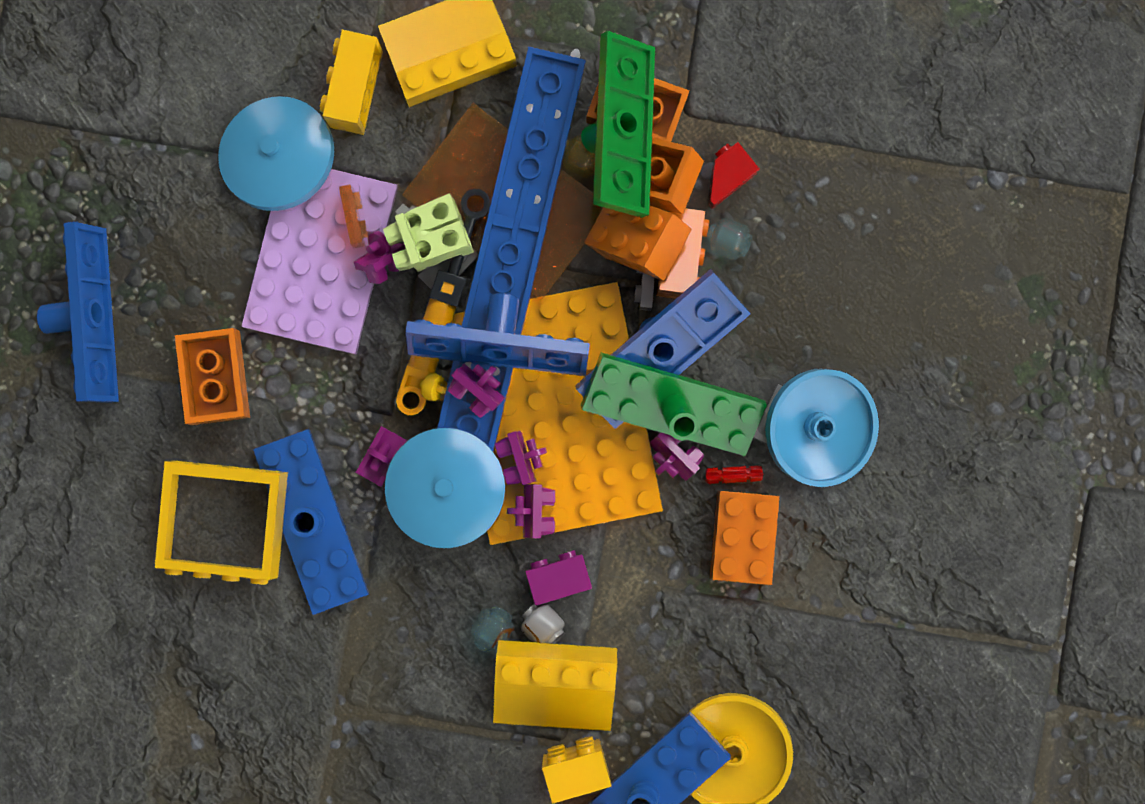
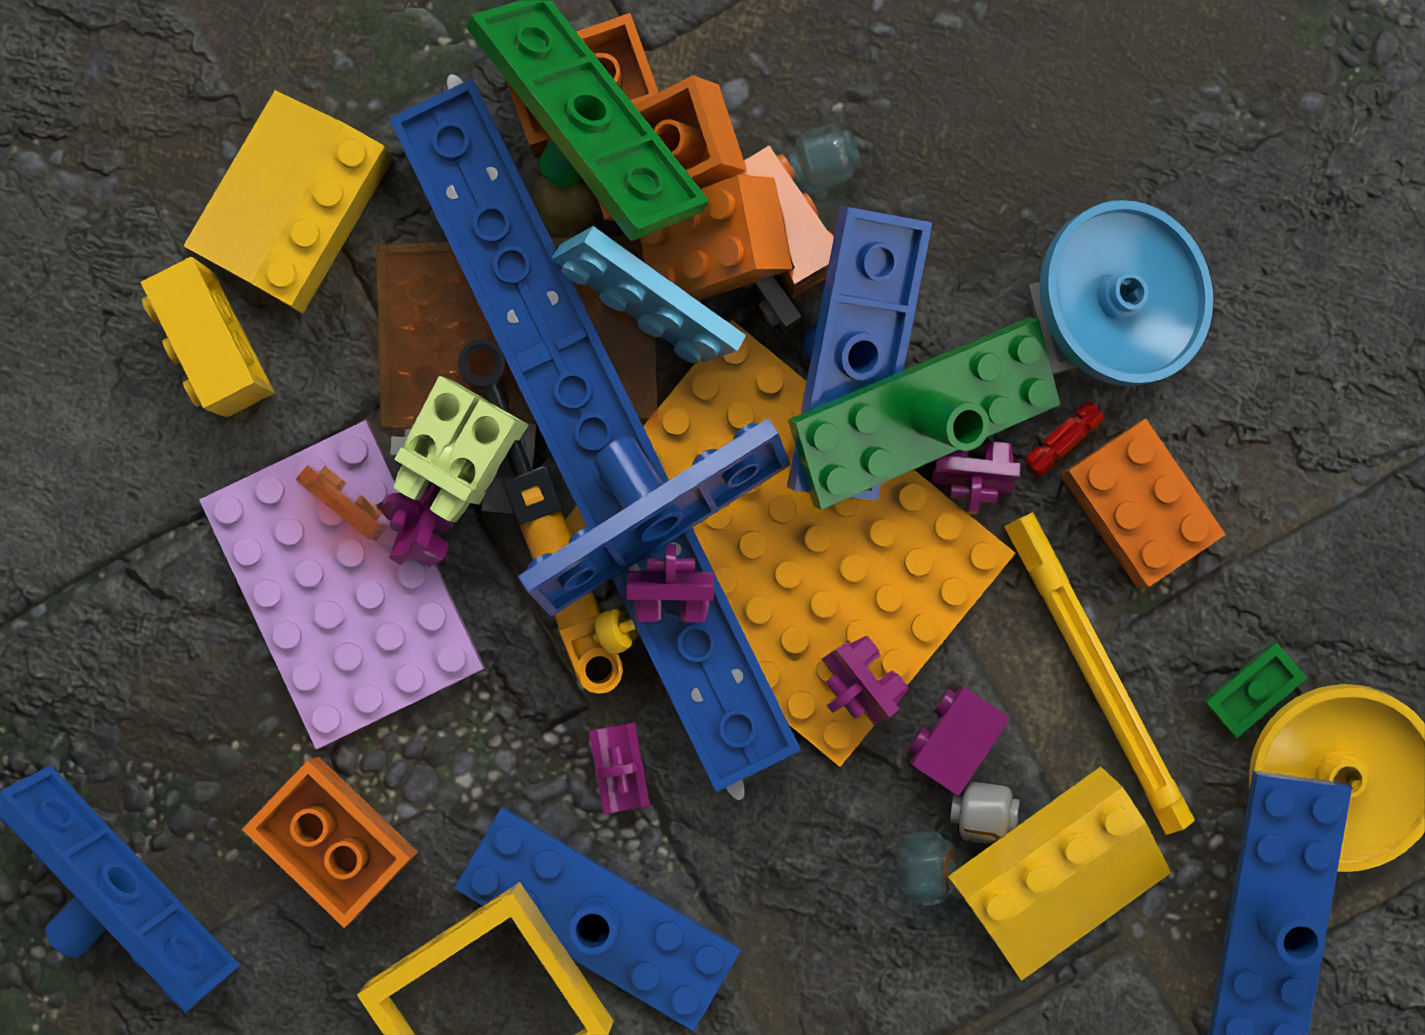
camera: 30 degrees left, 0 degrees up
(276, 153) = (185, 502): dark azure dish -> none
(444, 488) = (731, 744): dark azure dish -> none
(515, 445) = (808, 644): magenta hips -> none
(575, 769) = (1177, 958): yellow brick -> none
(582, 235) = (647, 296): none -> medium azure plate
(655, 605) = (1099, 673): none -> yellow piece
(725, 674) = (1254, 690): none -> green plate
(730, 172) = (759, 75): red slope -> none

